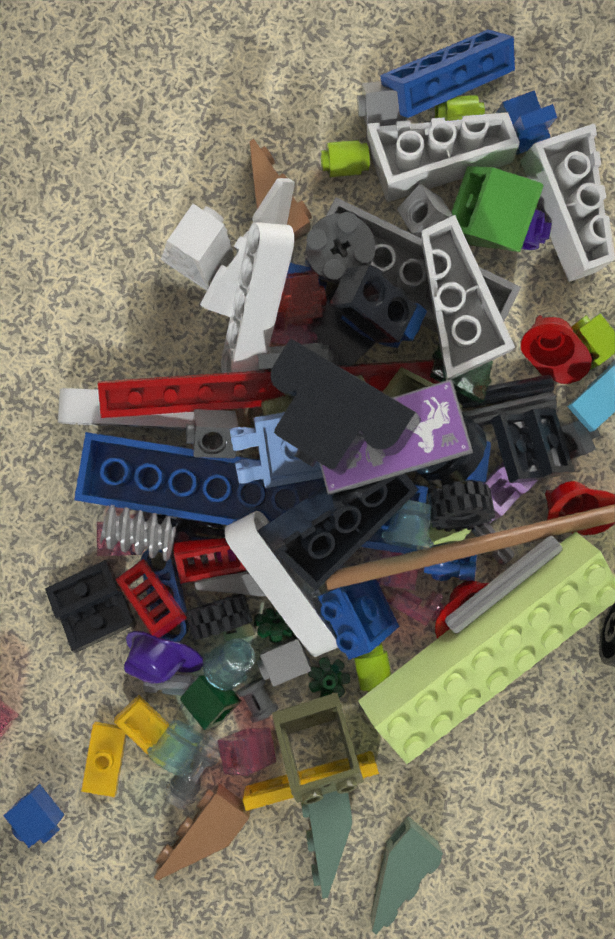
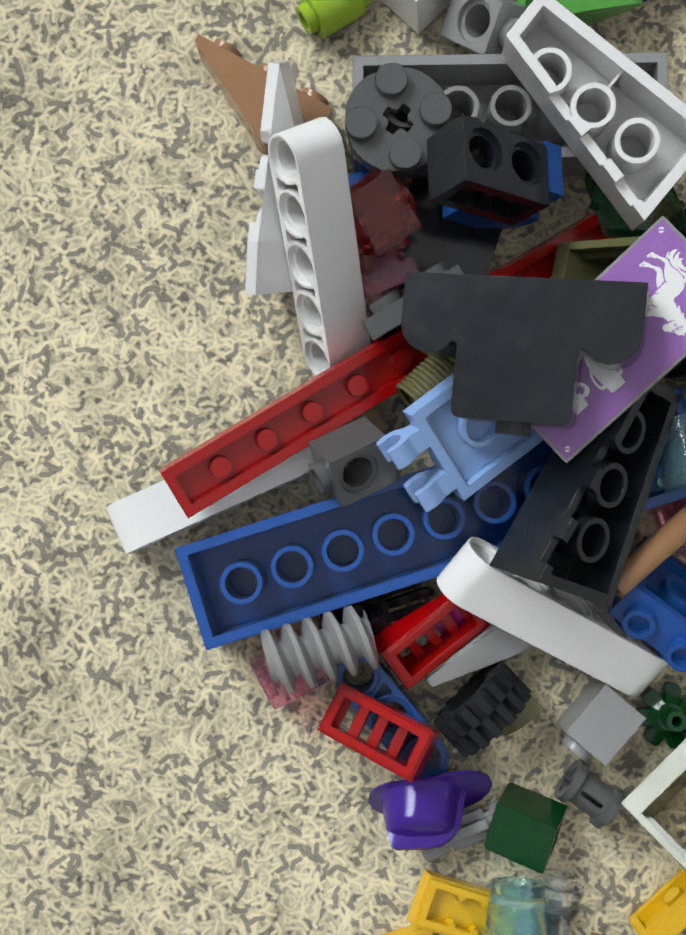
camera: 25 degrees left, 0 degrees up
(90, 606) = (296, 782): black slope -> none
(199, 246) = (204, 213): white wedge -> none
(228, 664) = (528, 765): clear light blue piece -> none
(247, 751) = (613, 872): clear pink brick -> none
(272, 625) = (558, 682): dark green plant -> none

